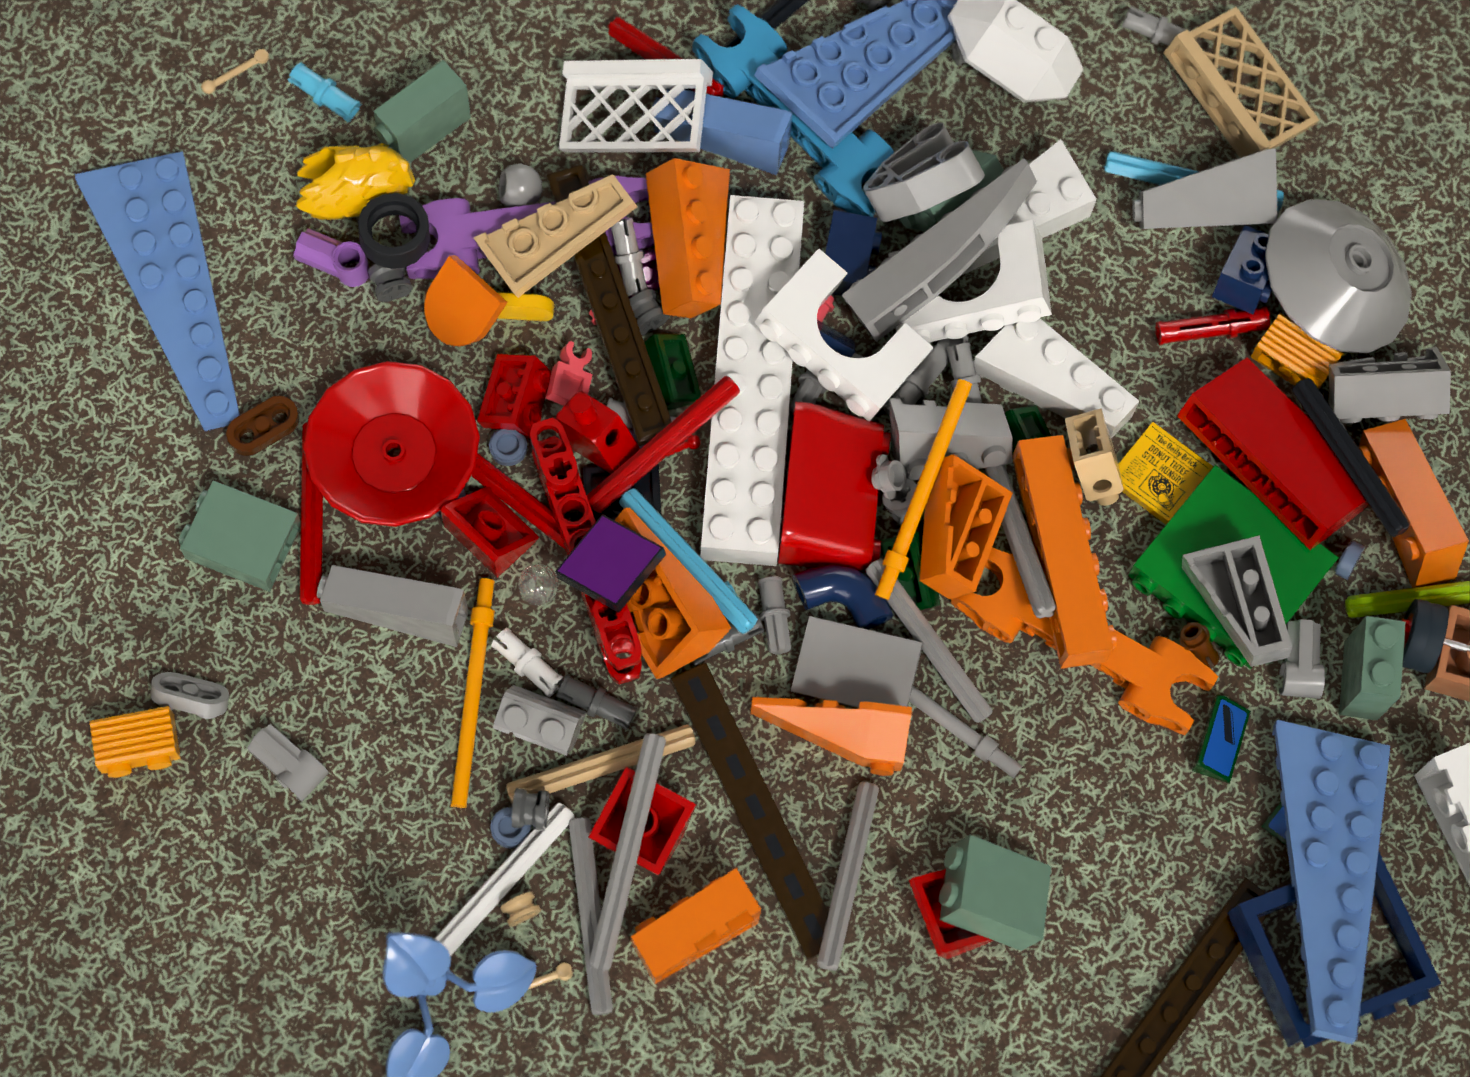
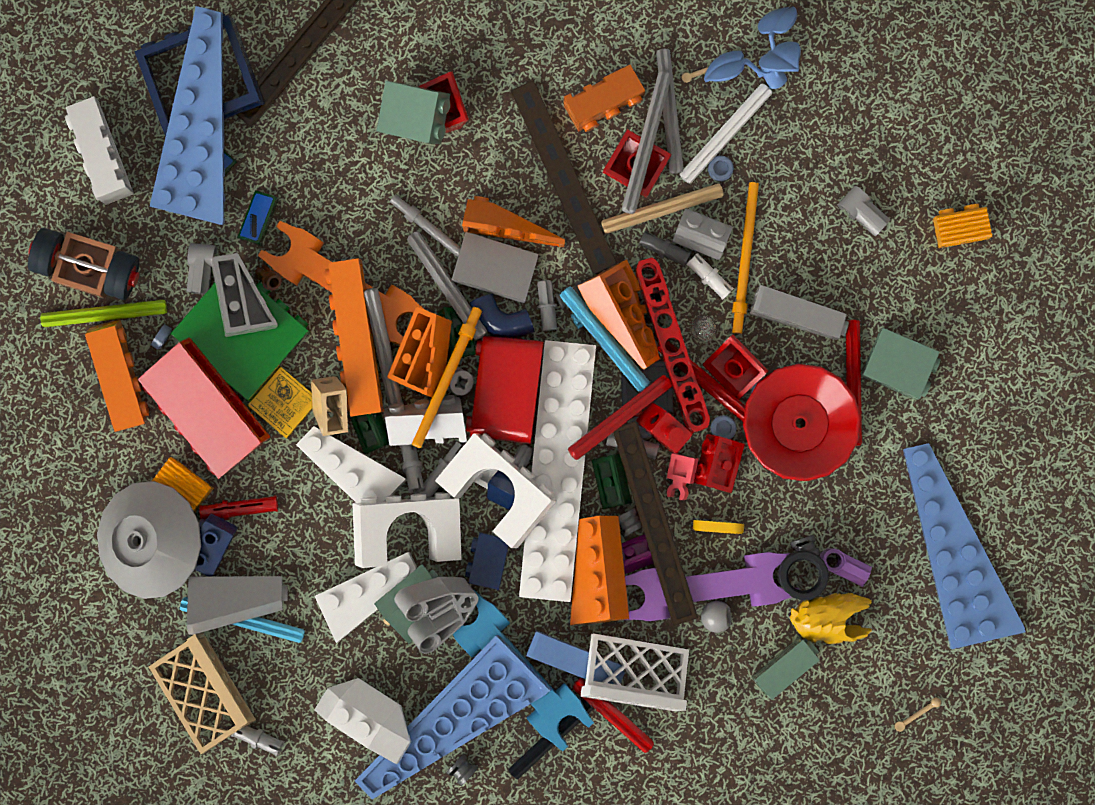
camera: 170 degrees left, 15 degrees up
(189, 694) = (928, 257): light grey plate -> none
(261, 424) = (888, 444): reddish brown plate -> none
(324, 92) = (854, 694): medium azure pin -> none
(461, 304) = (756, 525): orange tile -> none
(520, 909) = (713, 114): tan bush -> none
(530, 809) = (711, 173): dark grey wheel -> none
(545, 240) = (698, 566): tan wing -> none
(610, 563) = (656, 325): dark purple tile -> none
(629, 256) = (641, 557): light grey pin -> none
(847, 876) = (505, 131): light grey axle -> none
(888, 476) = (469, 392): light grey plate -> none
(939, 255) = (430, 544): light grey slope -> none
(1351, 457) = (156, 399): black axle -> none
(1372, 668) = (157, 254): sand green brick -> none
(1390, 388) = (122, 452): light grey wedge -> none

